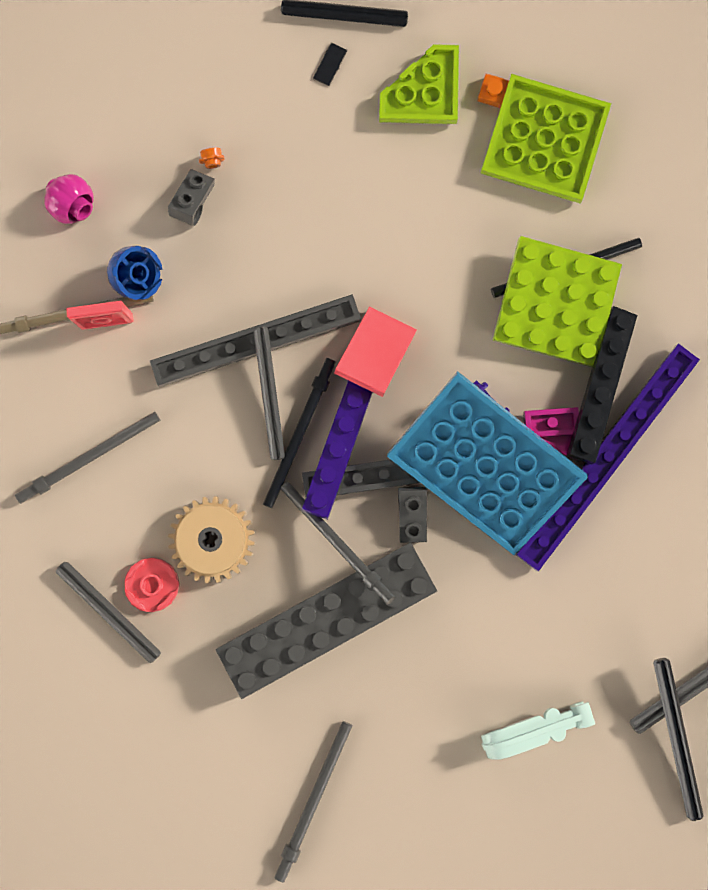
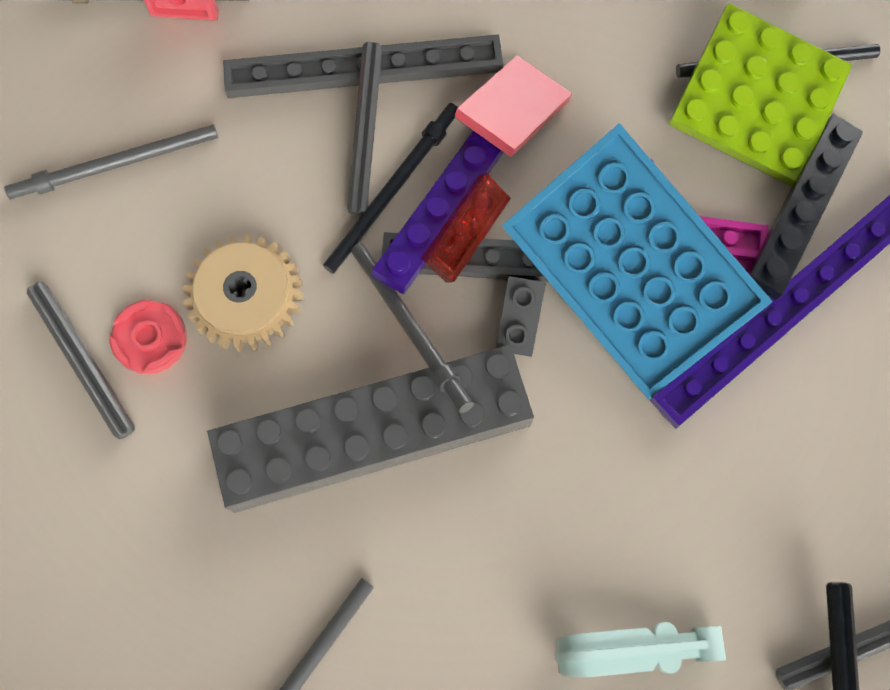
camera: 10 degrees right, 10 degrees down
(361, 460) = (466, 228): none -> clear red plate

